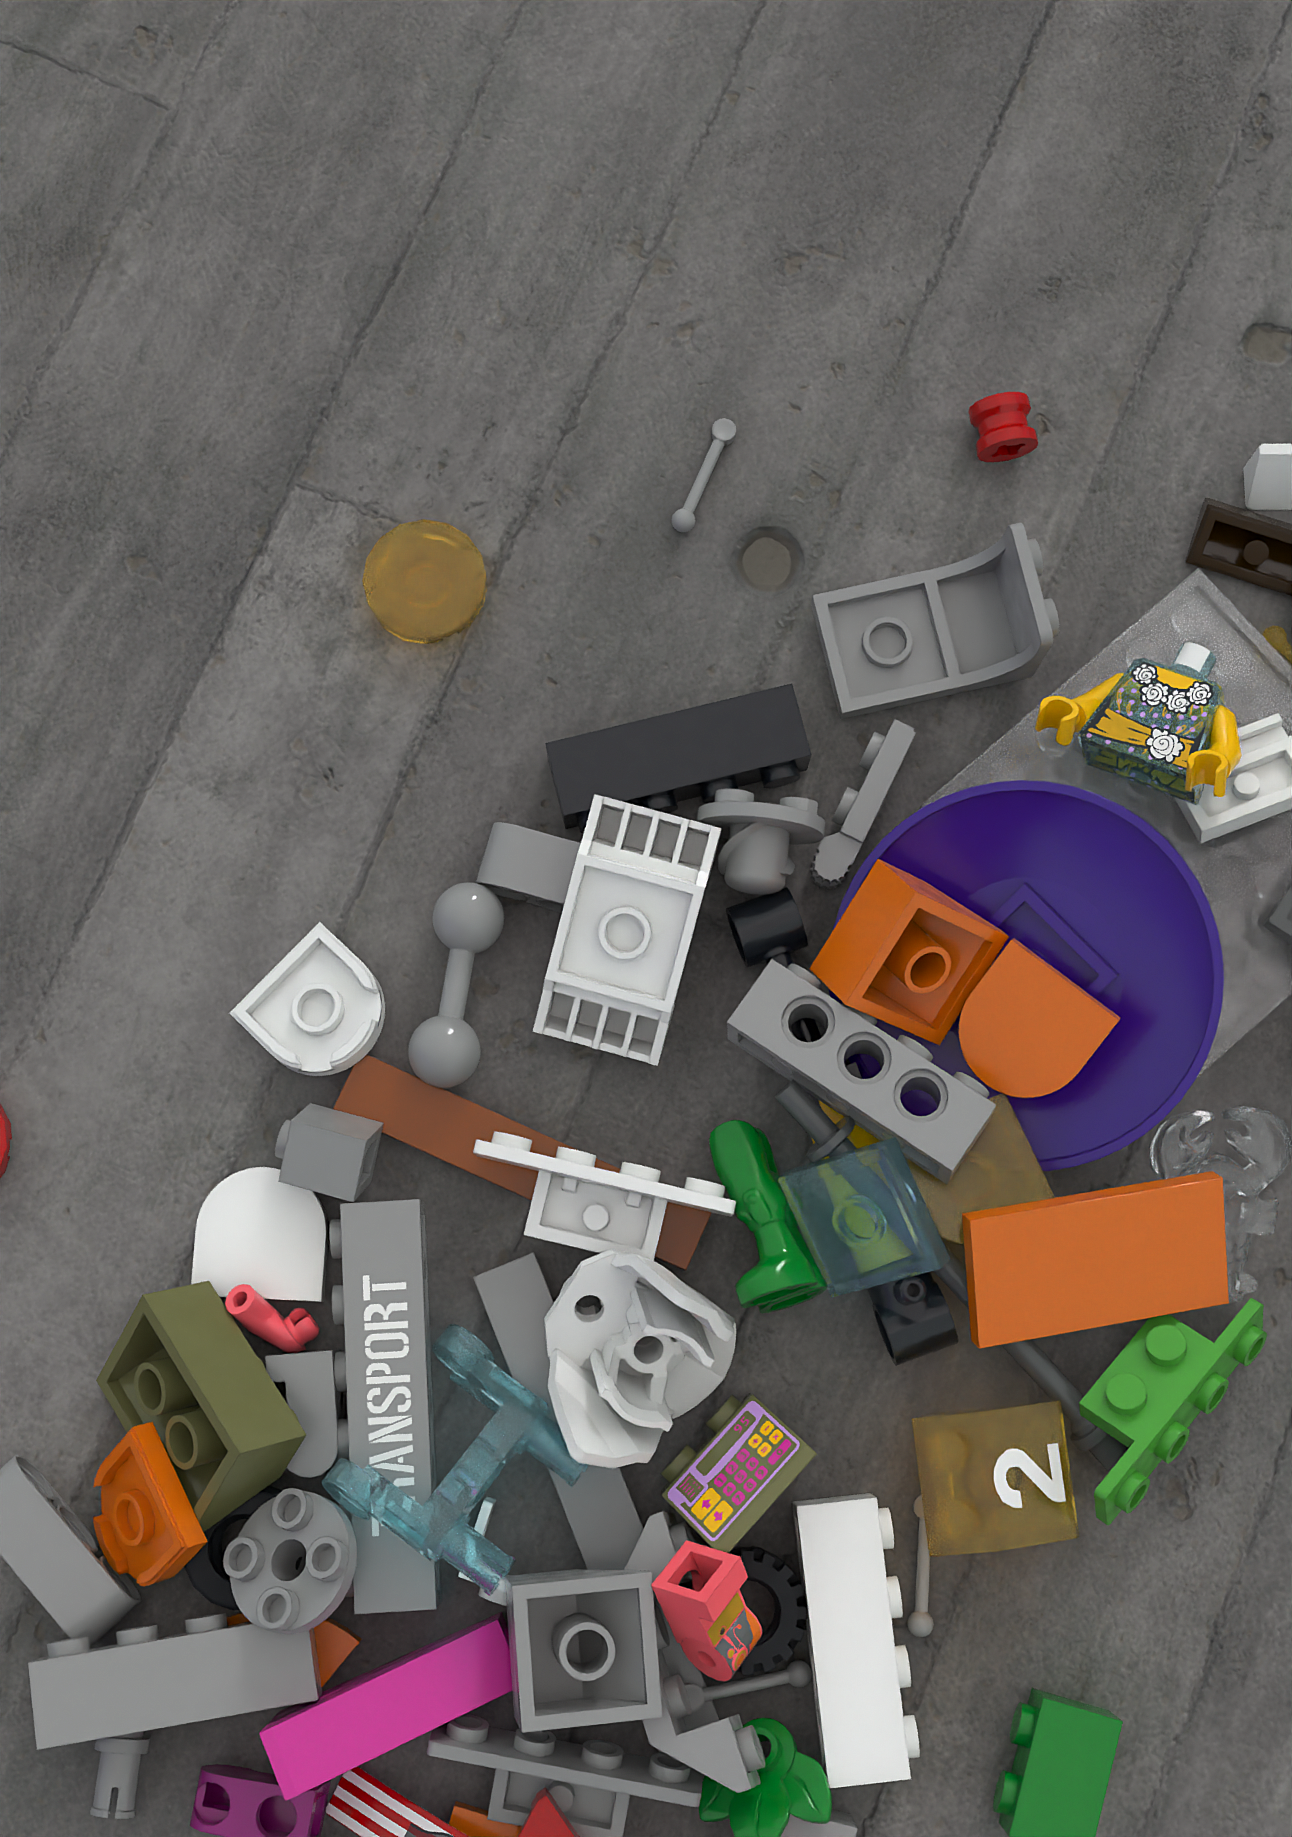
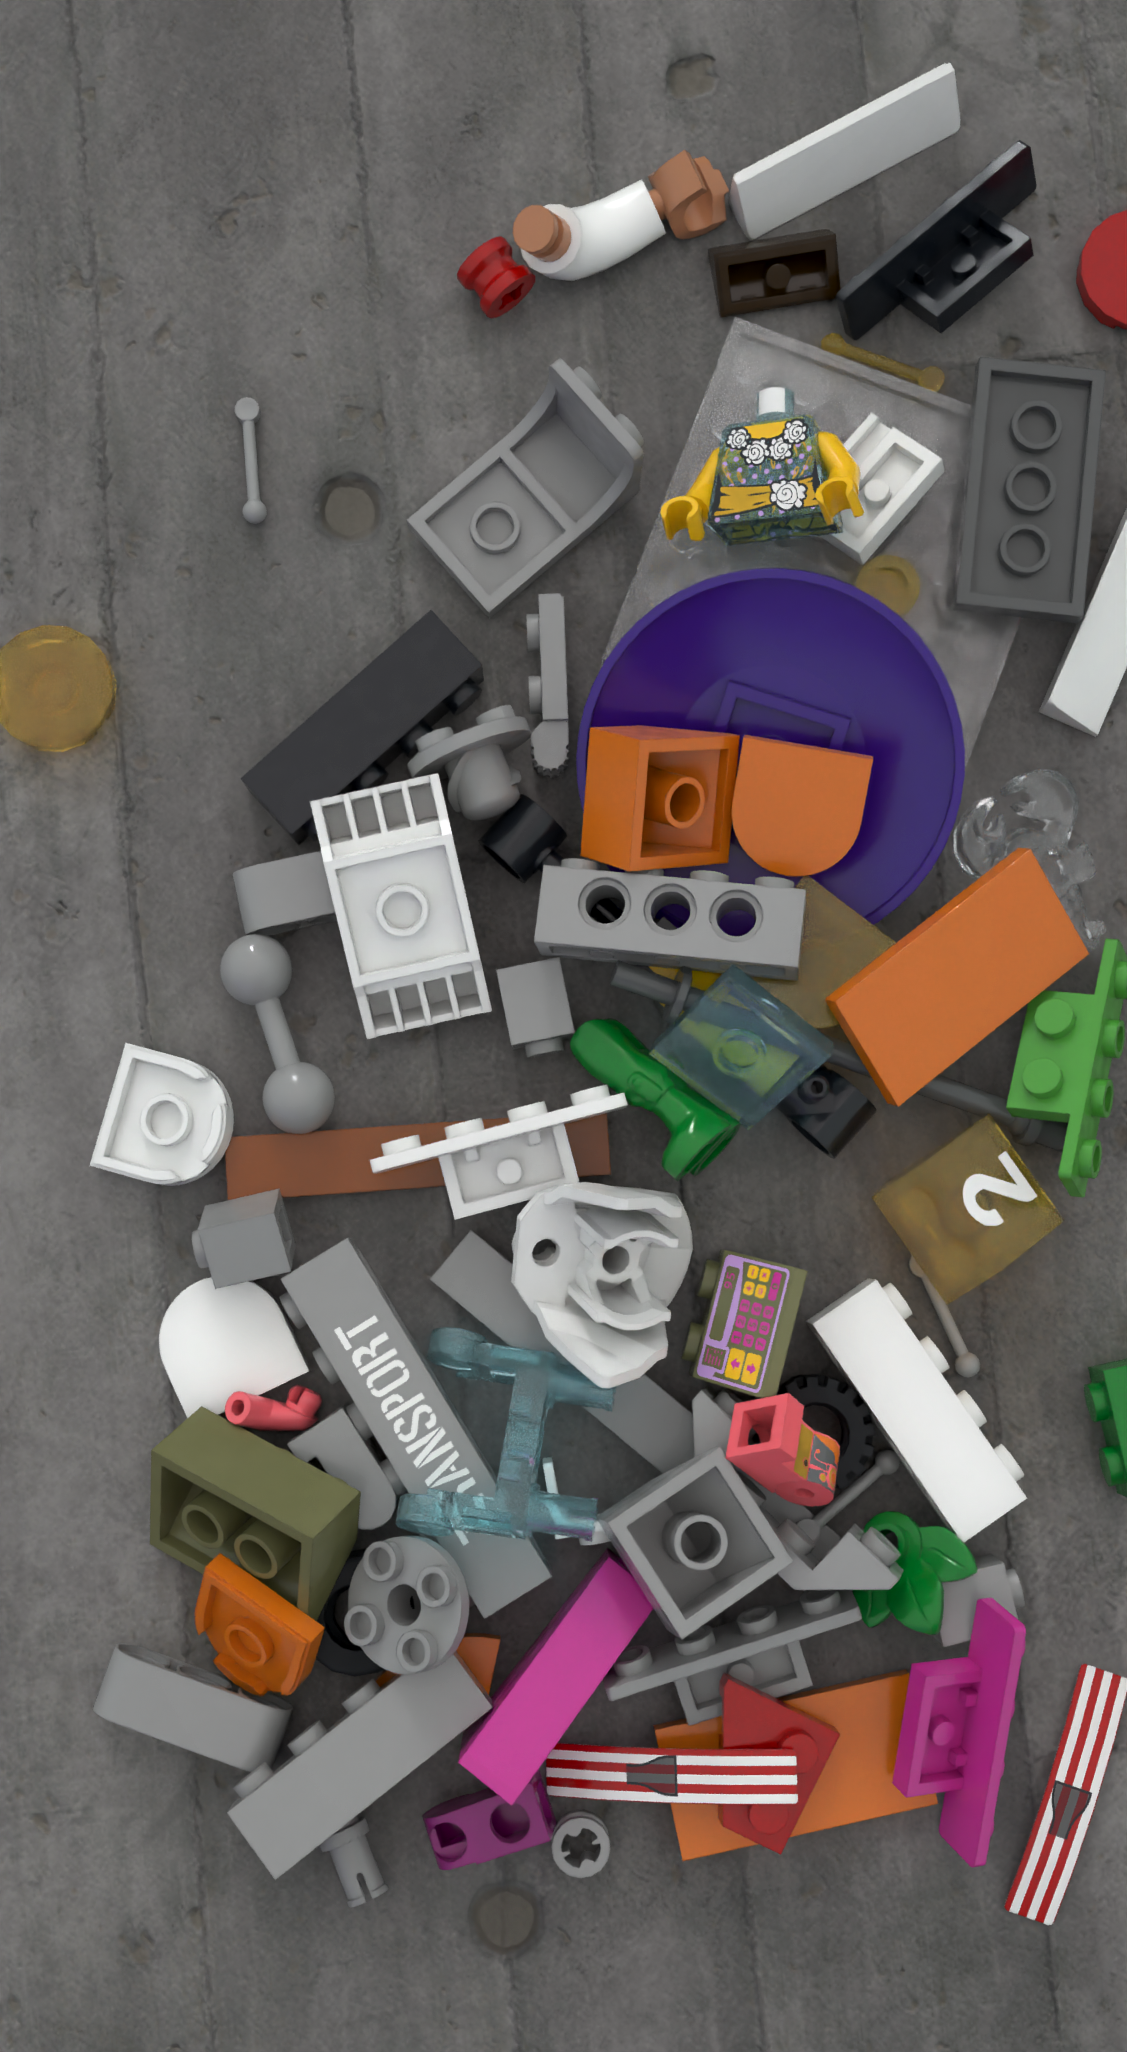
camera: 30 degrees left, 5 degrees up
(698, 1083) = (536, 1007): none -> light grey brick
(1123, 437) = (596, 236): none -> piece
(1218, 871) = (891, 581): none -> clear yellow tile

